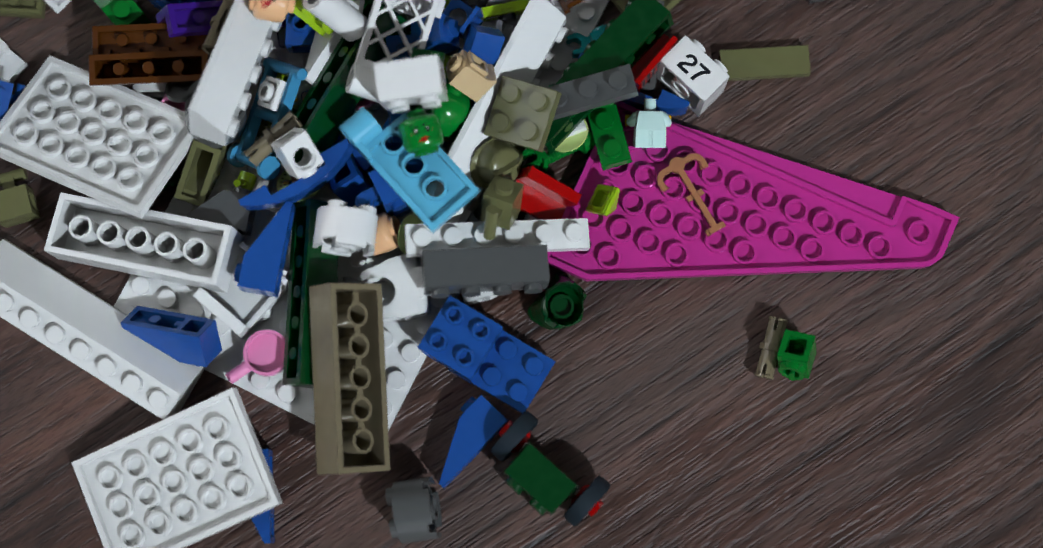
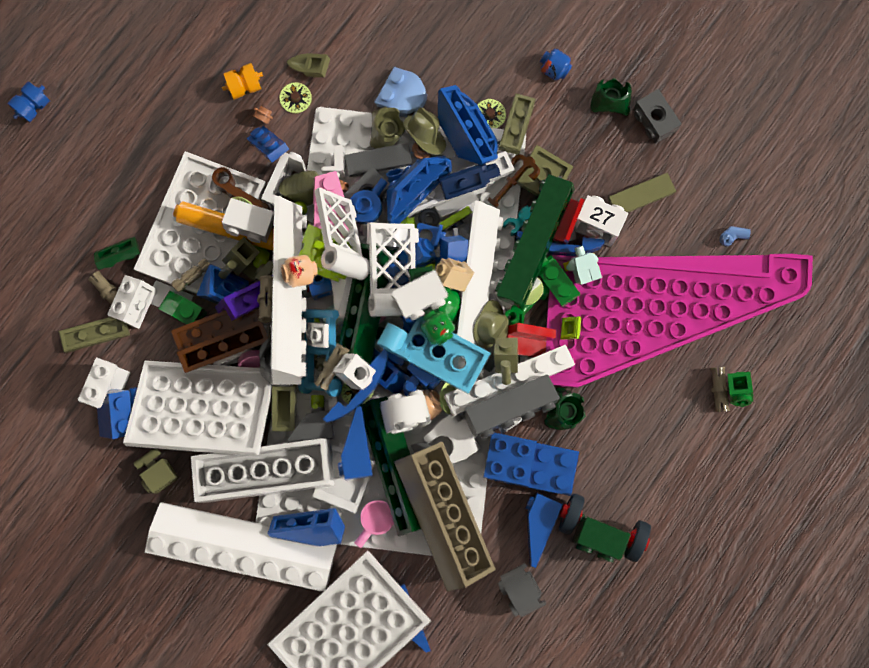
camera: 25 degrees left, 0 degrees up
(177, 91) = (249, 356): dark grey piece -> none
(522, 114) = (498, 288): olive plate -> none
(595, 91) = (538, 257): dark grey plate -> none
(677, 166) = (611, 286): nougat piece -> none
(865, 153) = (732, 234): none -> medium blue arm

